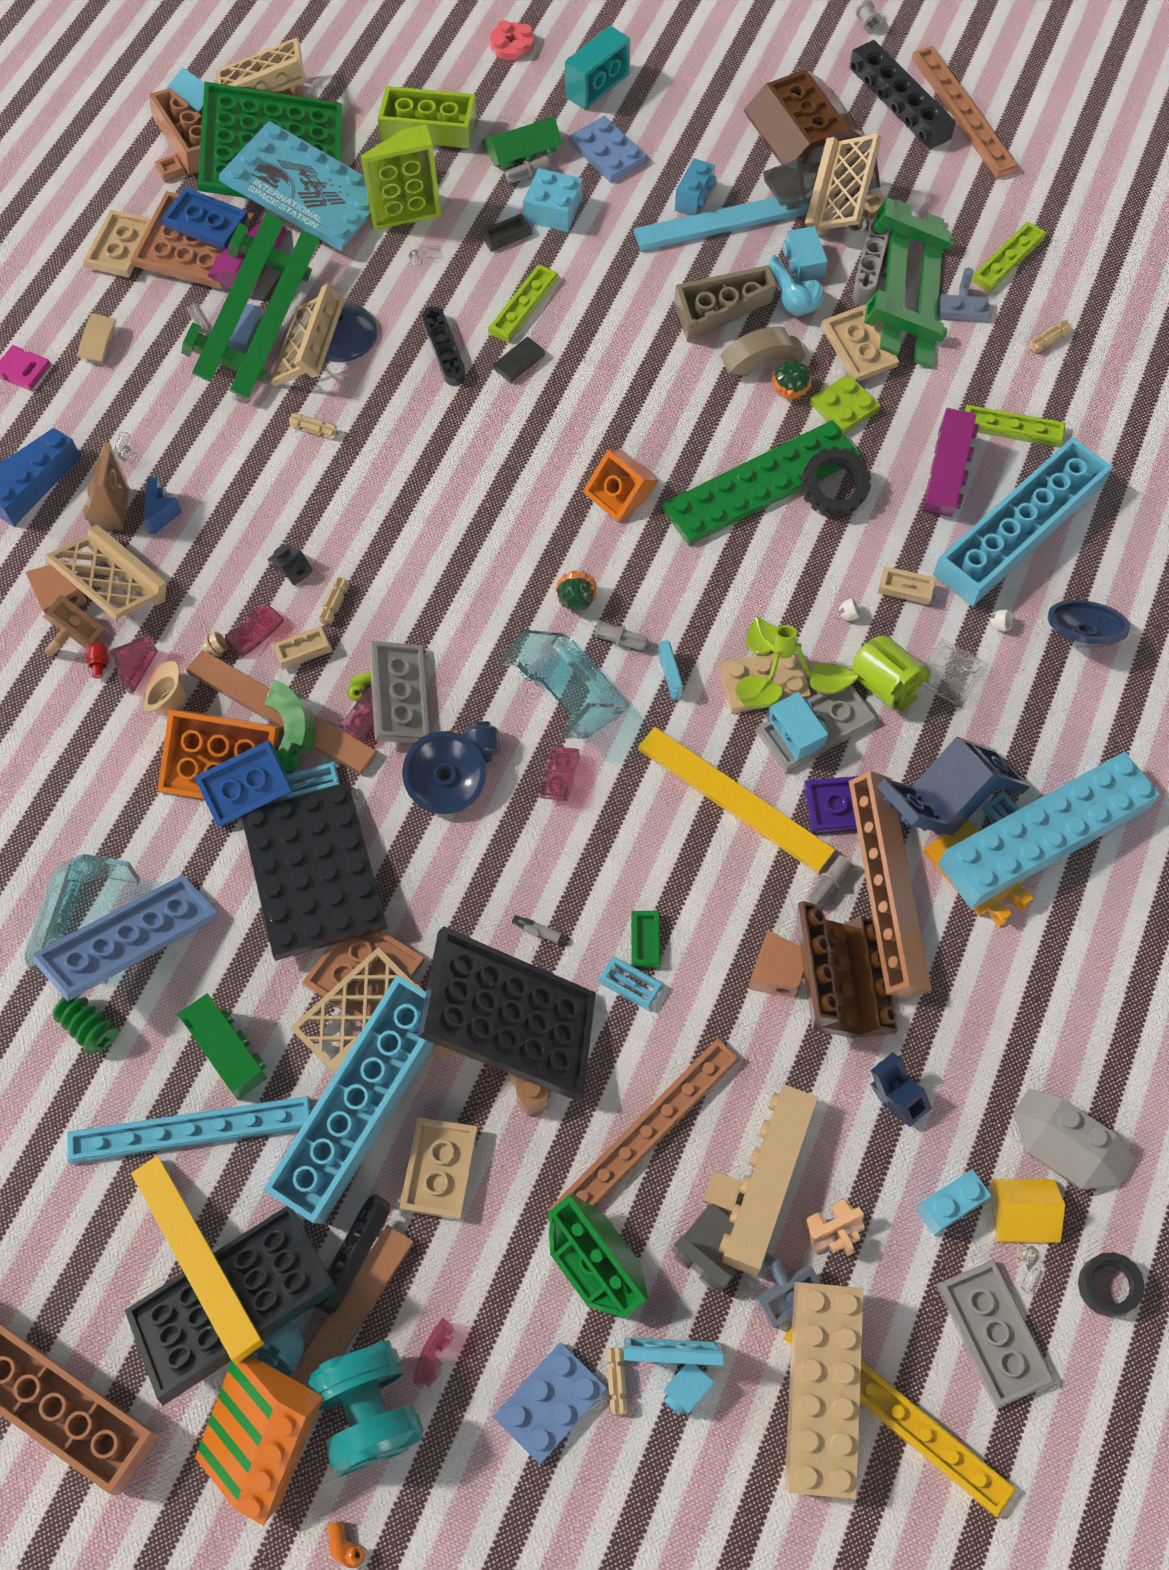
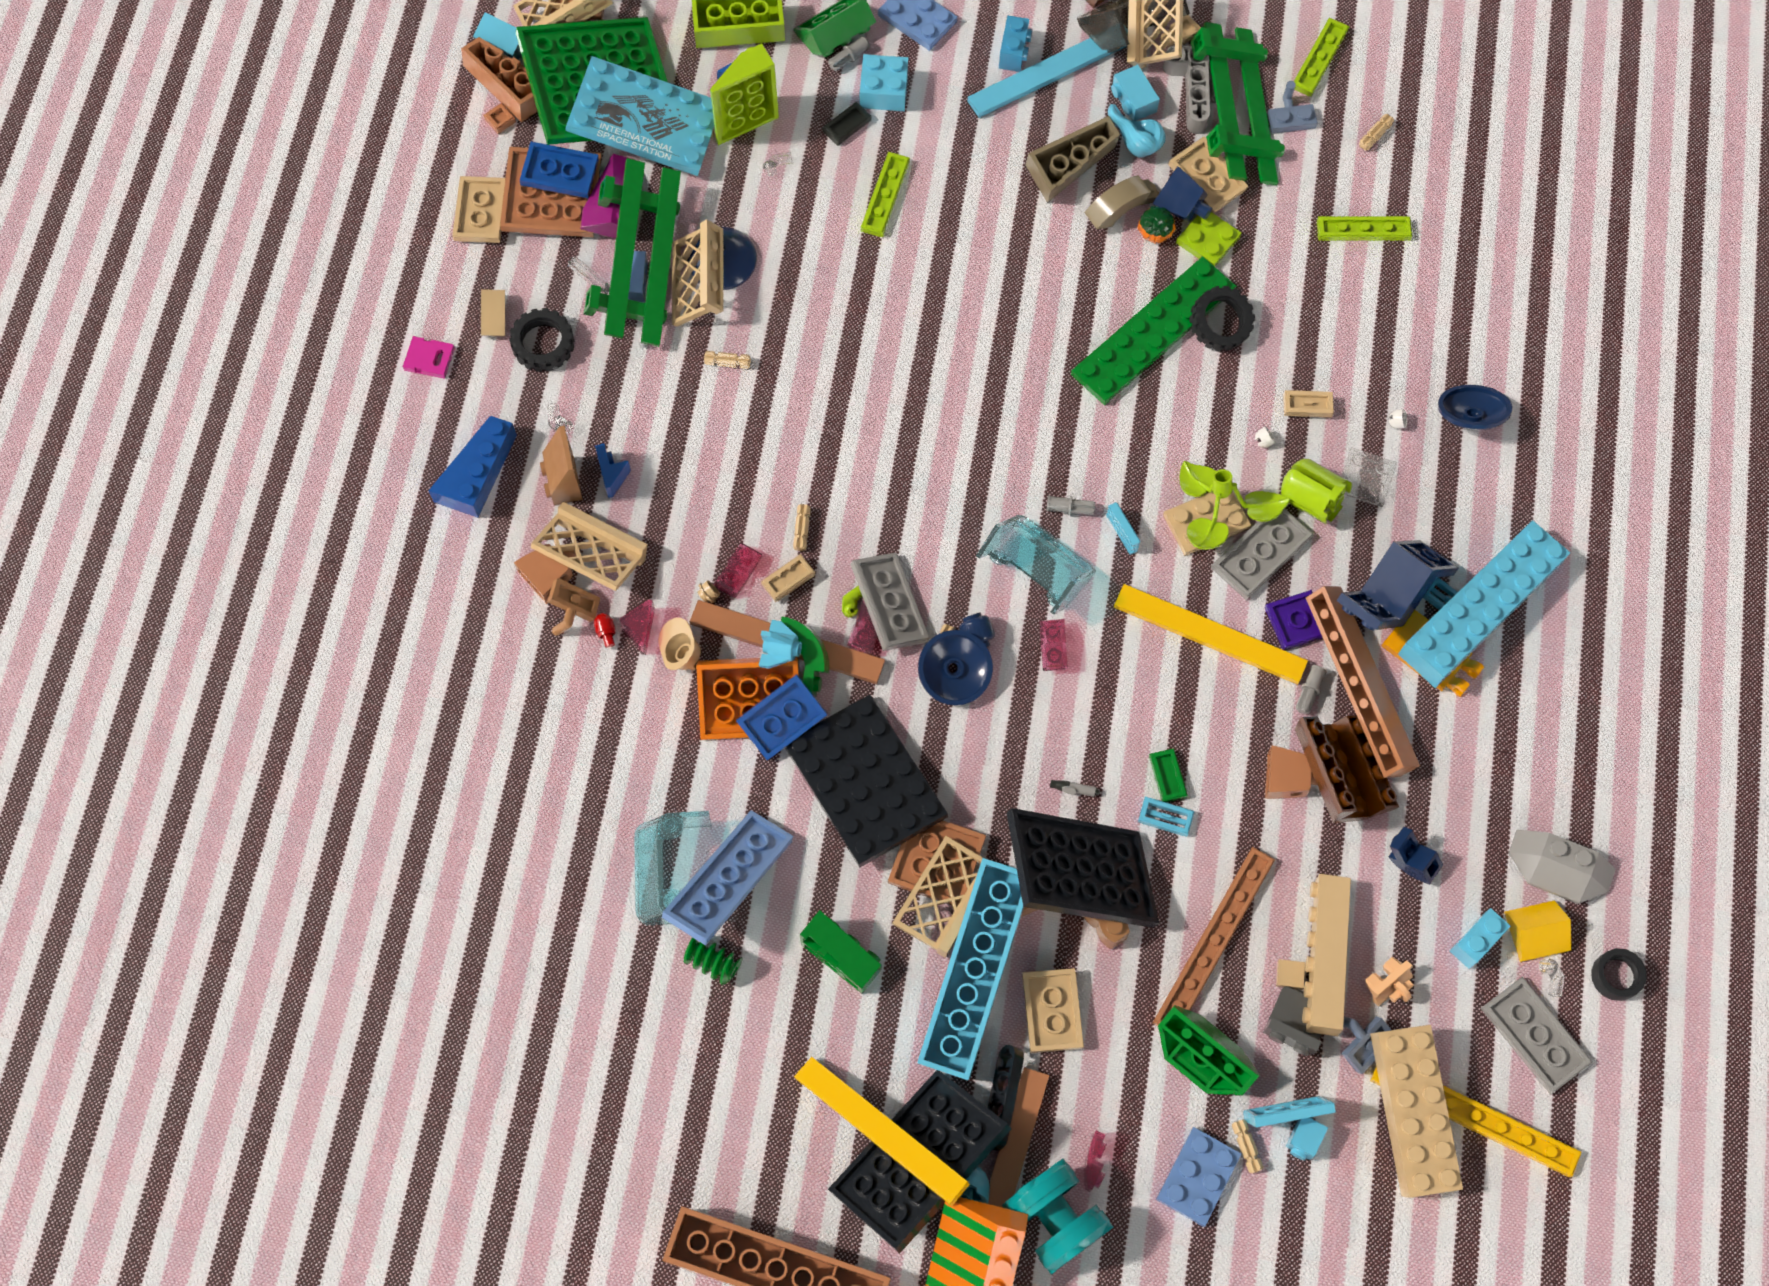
camera: 15 degrees left, 5 degrees up
(129, 353) = (542, 318): none -> black tyre
(187, 1130) = (830, 1028): medium azure tile -> none
(260, 707) = (779, 644): none -> medium azure brick
(290, 562) = (751, 499): black bracket -> none
(312, 785) = (835, 690): medium azure tile -> none
(445, 345) = (826, 252): black beam -> none
(518, 359) = (898, 253): pearl dark grey tile -> none
(576, 590) = (1020, 471): dark green piece -> none
(619, 484) = (1028, 360): orange slope -> none
(798, 726) = (1250, 557): medium azure brick -> none
(826, 357) = (1183, 197): none -> dark blue torso
(949, 462) = (1319, 278): magenta wedge -> none
(1022, 521) = (1395, 322): medium azure brick -> none

